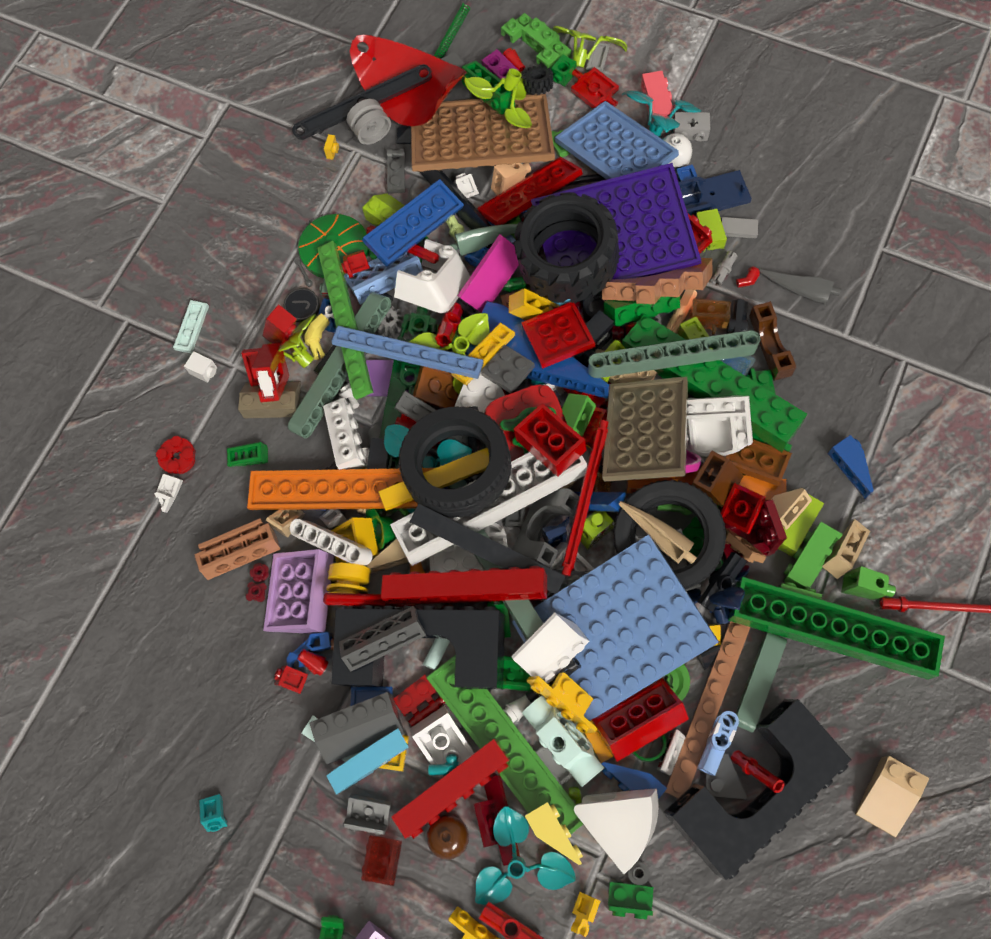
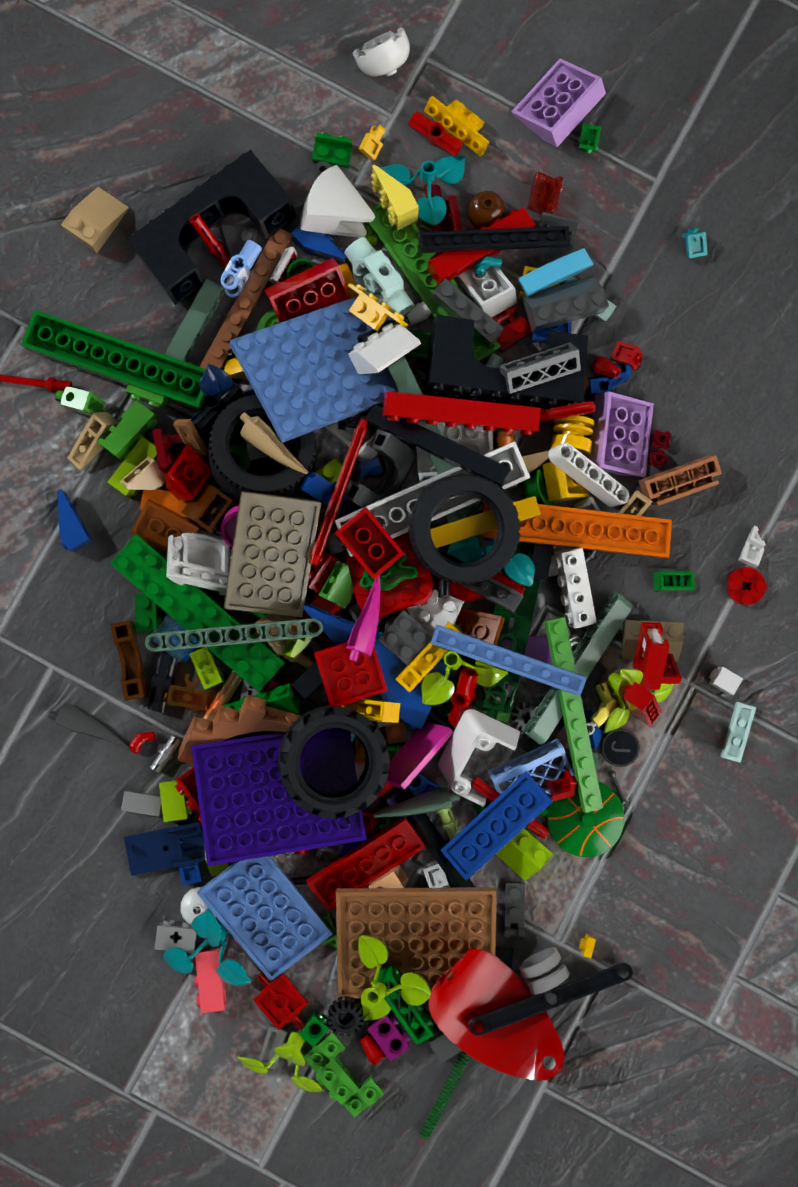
camera: 170 degrees right, 15 degrees up
(437, 792) = (493, 239): none -> black tile
(463, 706) = (460, 306): none -> dark grey brick
(547, 366) = (365, 629): none -> dark pink piece

